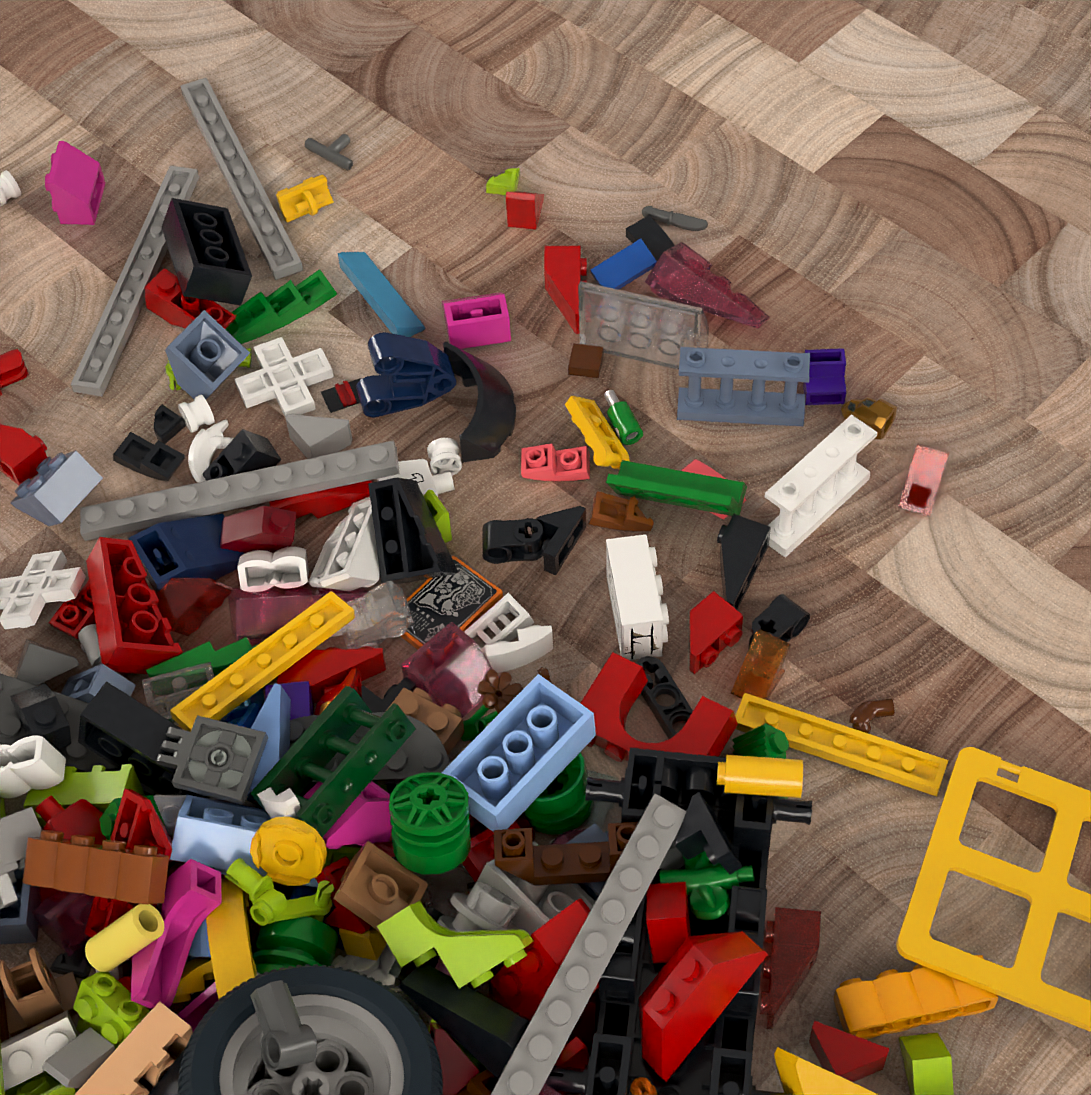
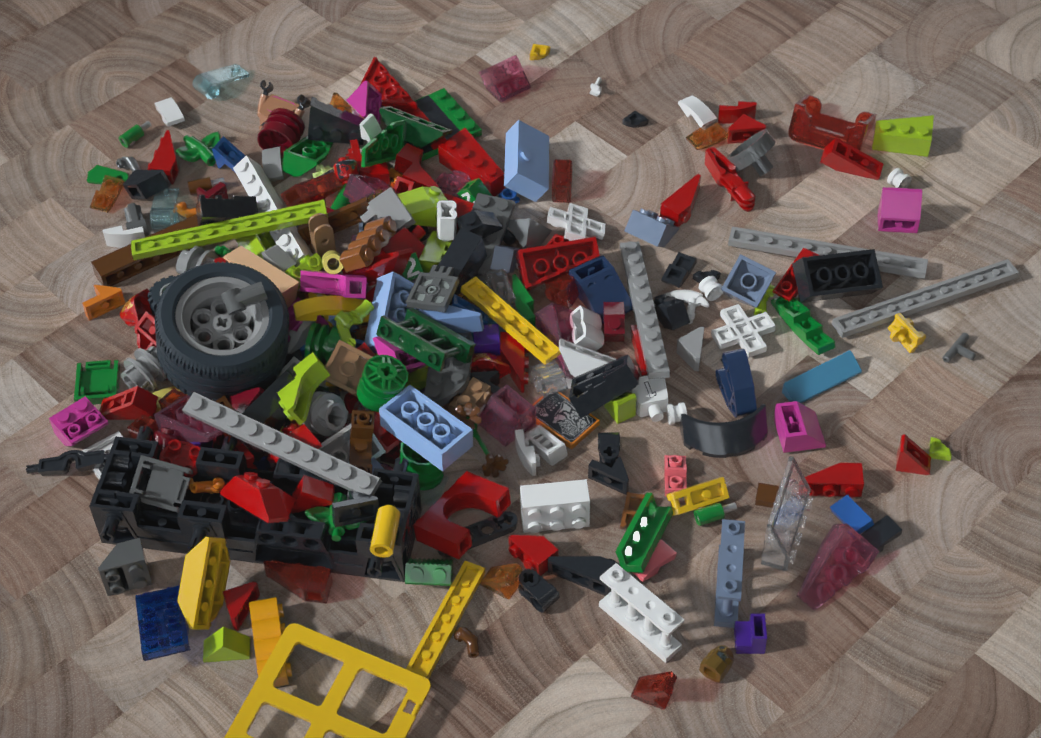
camera: 90 degrees right, 5 degrees down
(281, 805) = (396, 312): white slope -> none
(288, 851) = (371, 322): yellow tile -> none
(676, 219) = (910, 551): dark grey piece -> none

